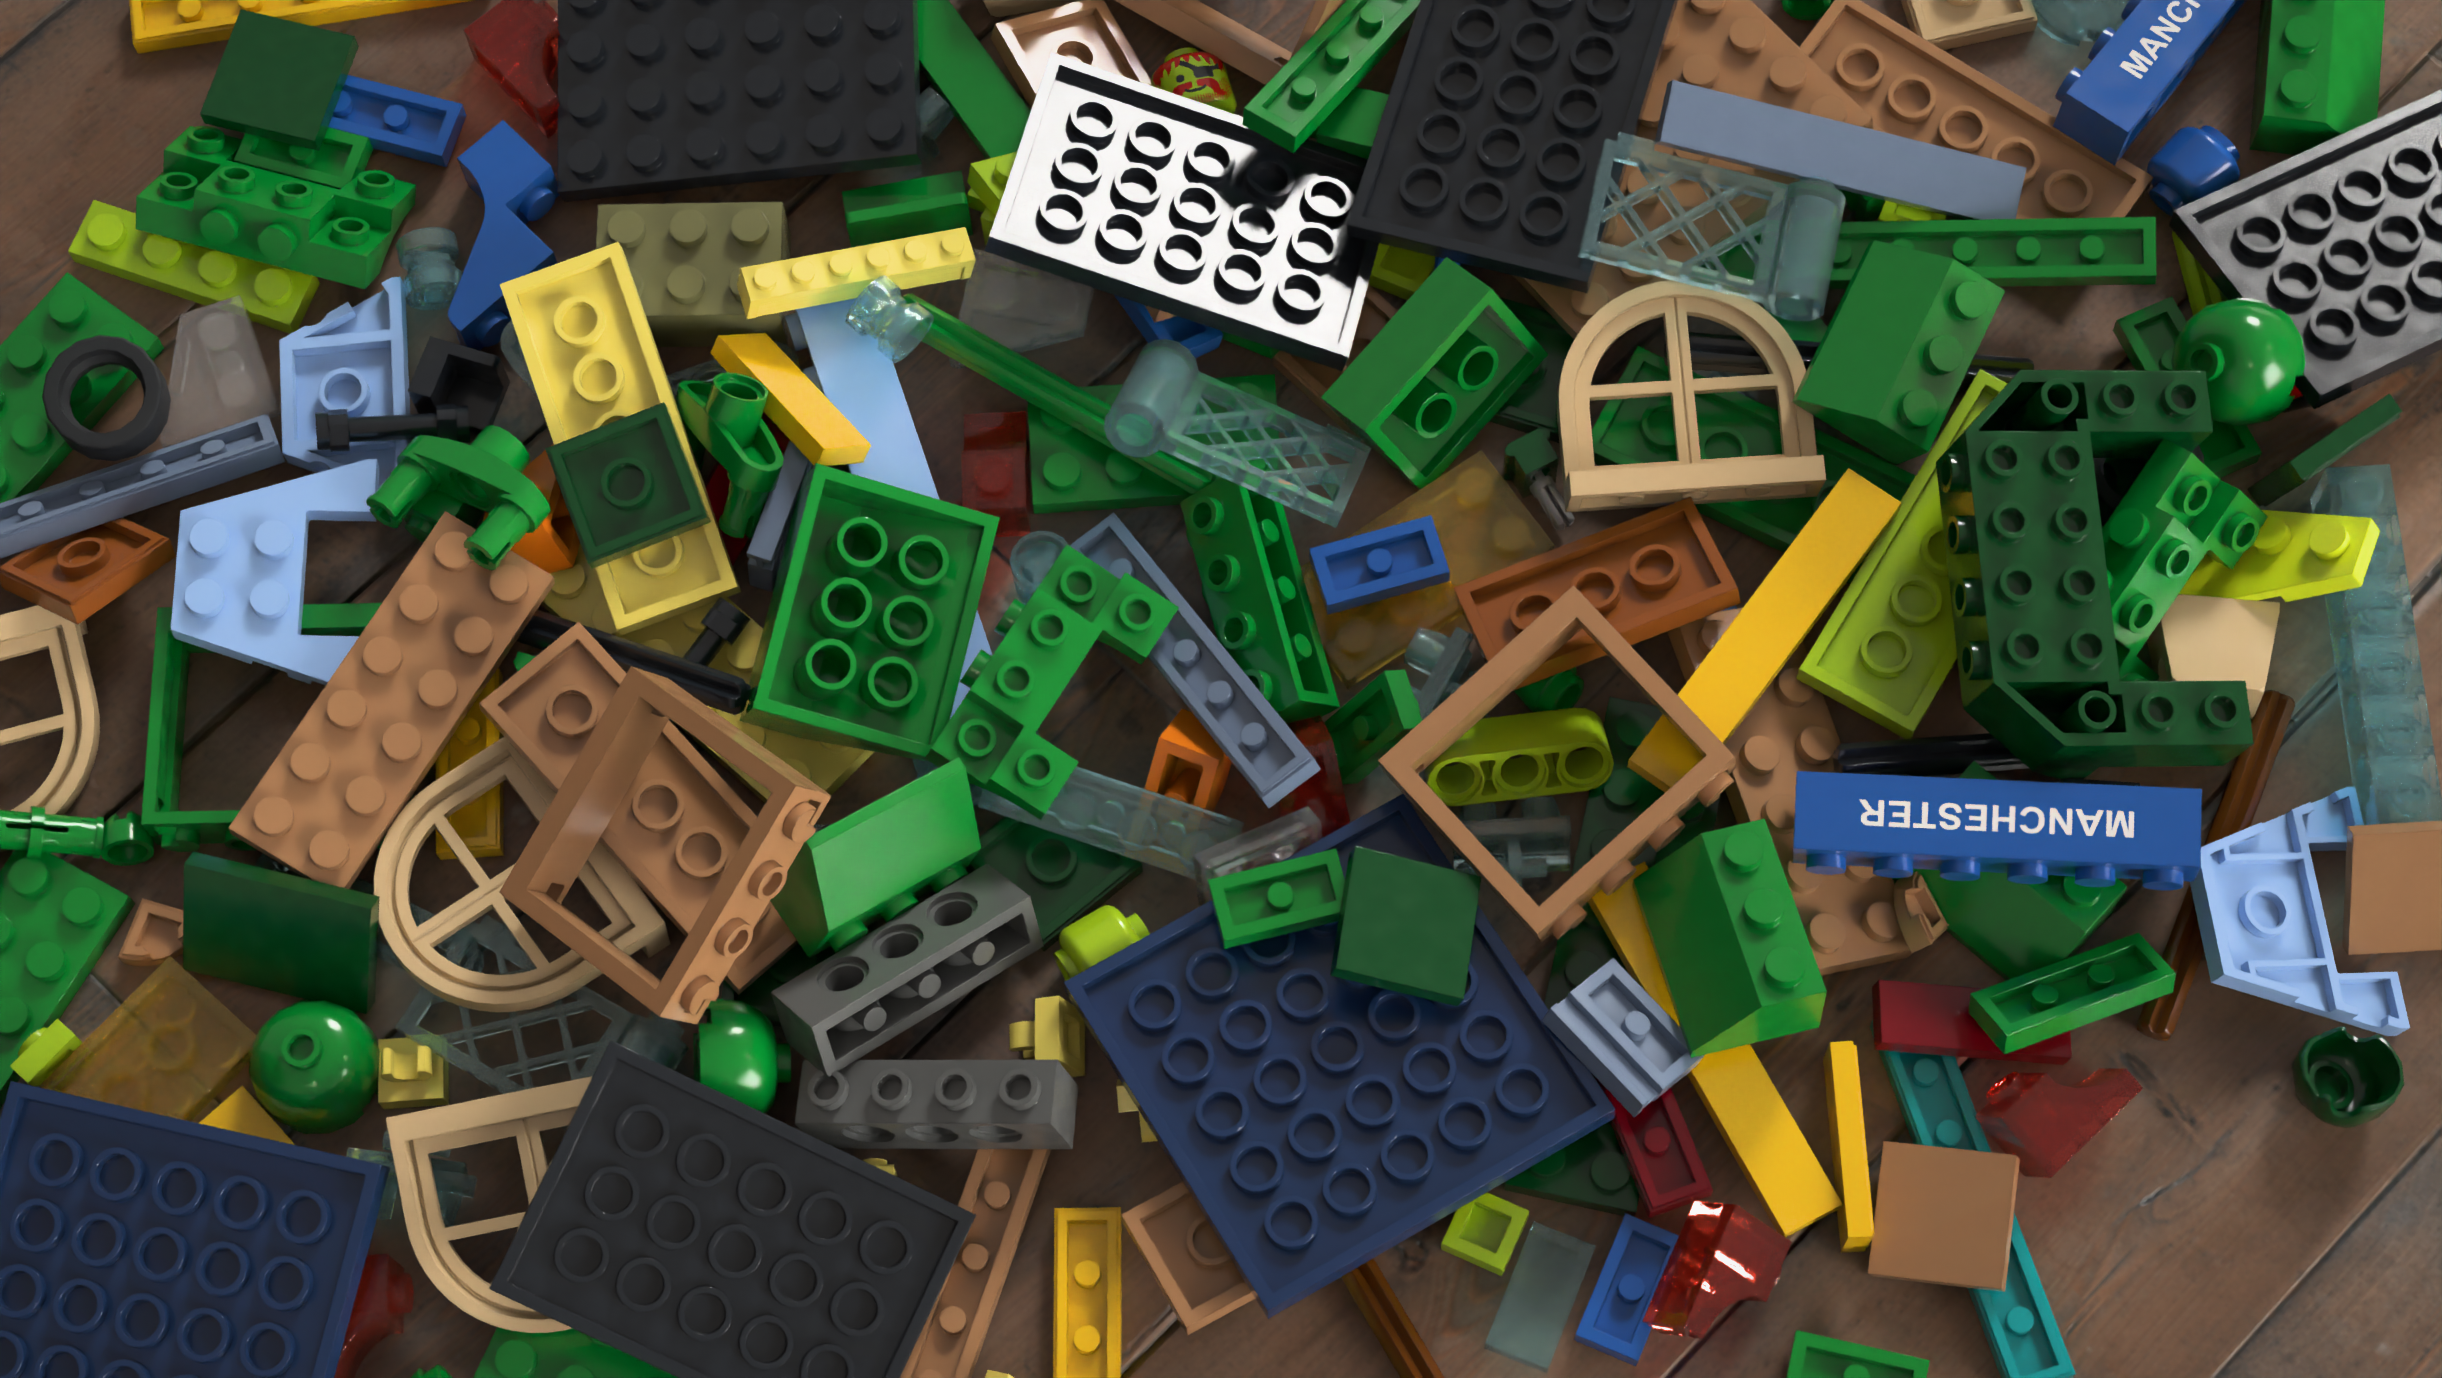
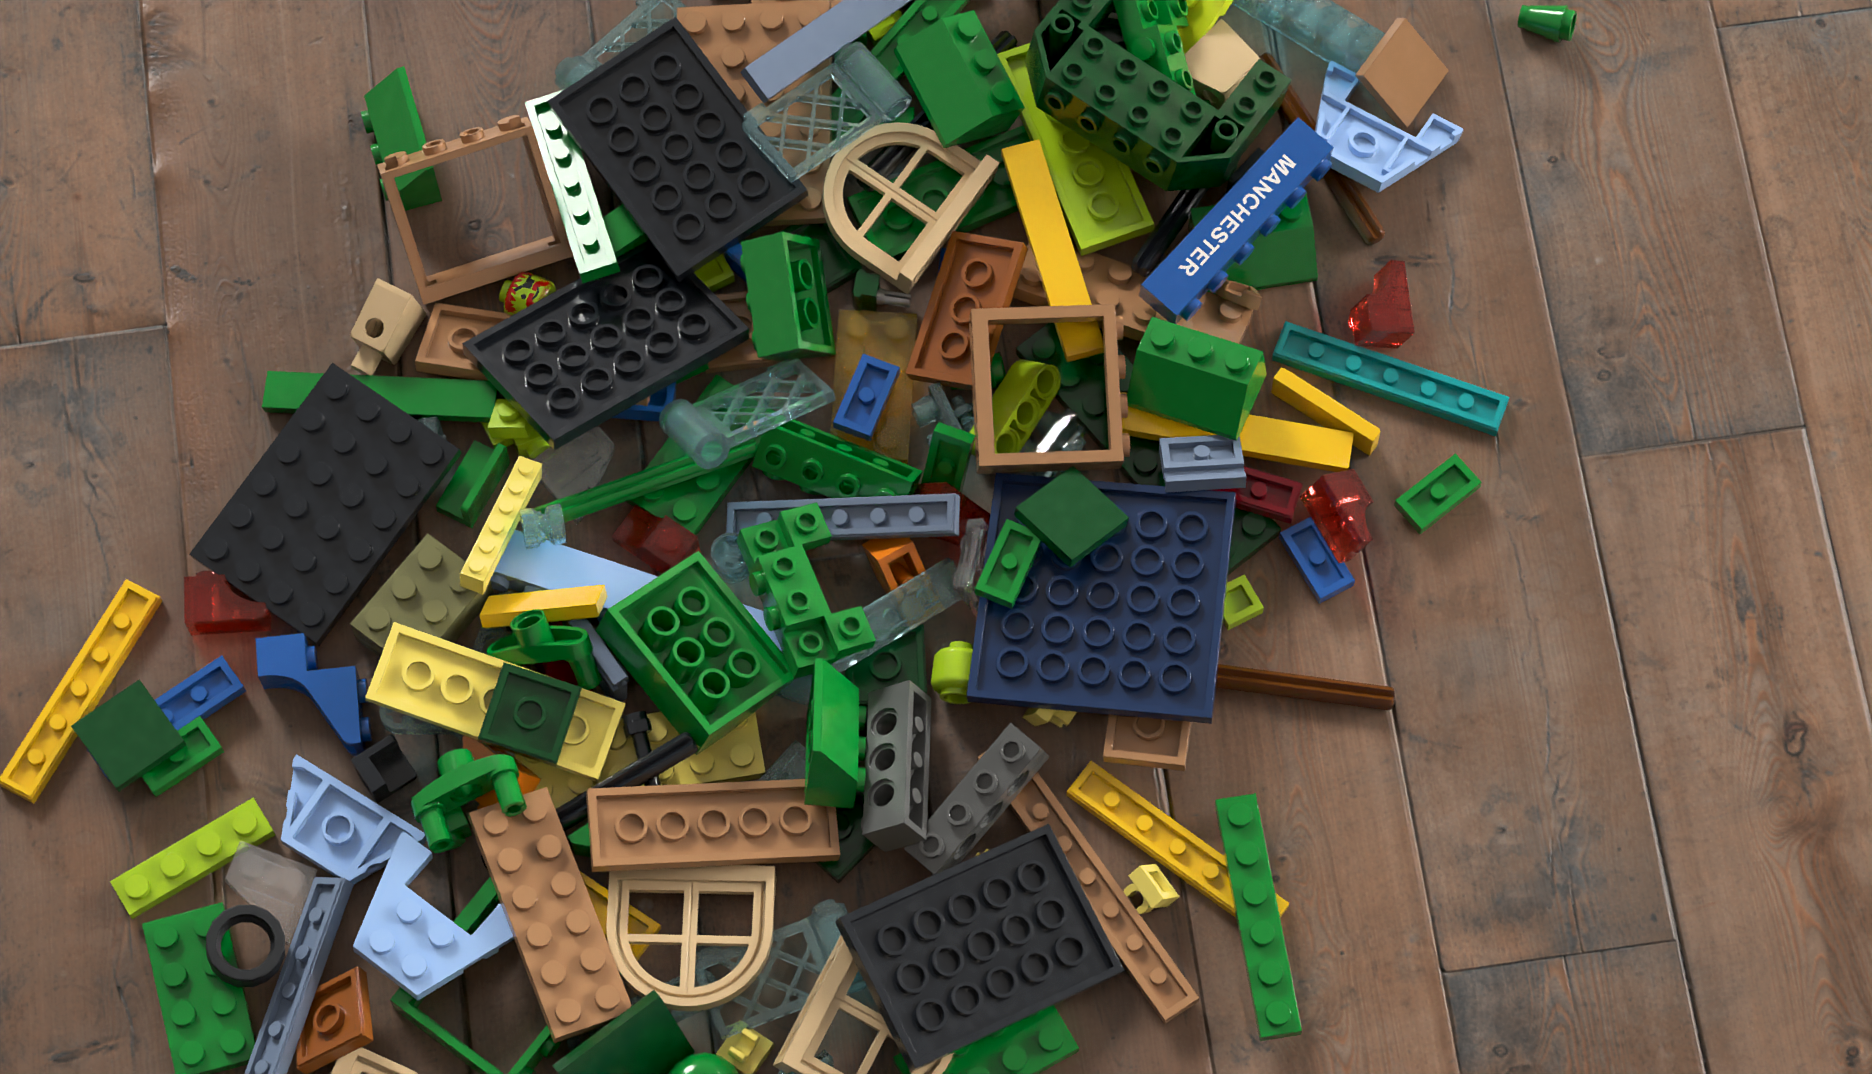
camera: 55 degrees left, 0 degrees up
(270, 215) = (201, 796): green bracket -> none
(336, 429) = (365, 841): black bar -> none
(430, 266) = (304, 736): clear light blue wheel -> none
(591, 798) = (693, 843): medium nougat window -> none
(740, 1054) = (868, 878): green cylinder -> none
(1054, 1035) = (981, 728): light yellow tile -> none
(1540, 1297) = (1286, 603): clear light blue tile -> none
(1937, 1022) = (1310, 311): dark red tile -> none
(1944, 1216) = (1393, 394): medium nougat tile -> none
(2071, 993) = (1334, 256): green plate -> none
(2347, 1077) = (1466, 172): dark green hair -> none

